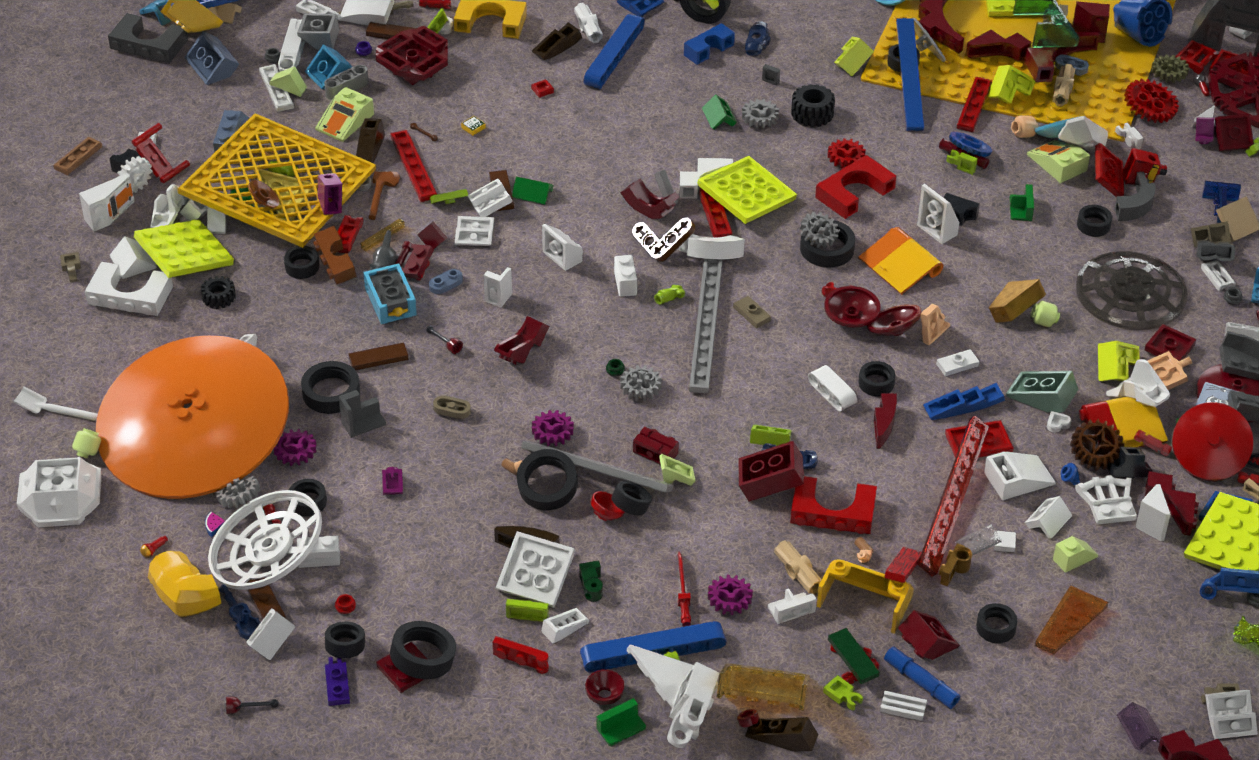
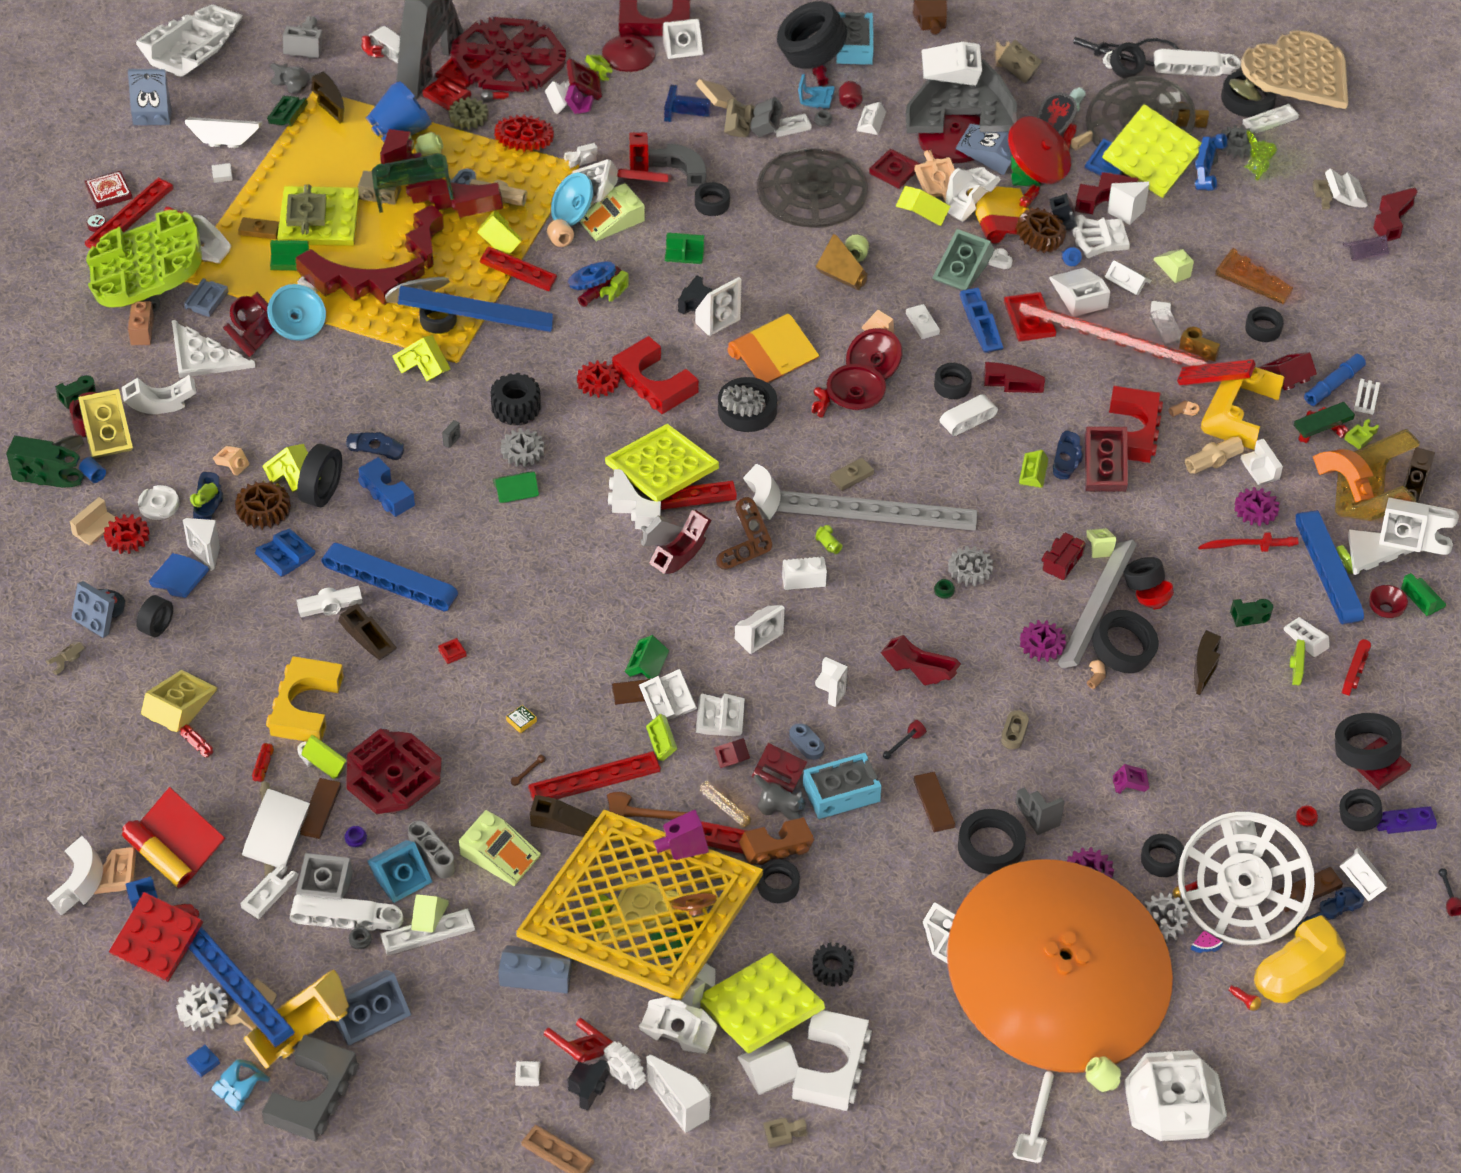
camera: 90 degrees left, 5 degrees up
(535, 569) = (1251, 650): white plate -> none
(771, 662) = (1351, 466): none -> orange arch
(1116, 44) = (429, 144): none -> yellowish green head

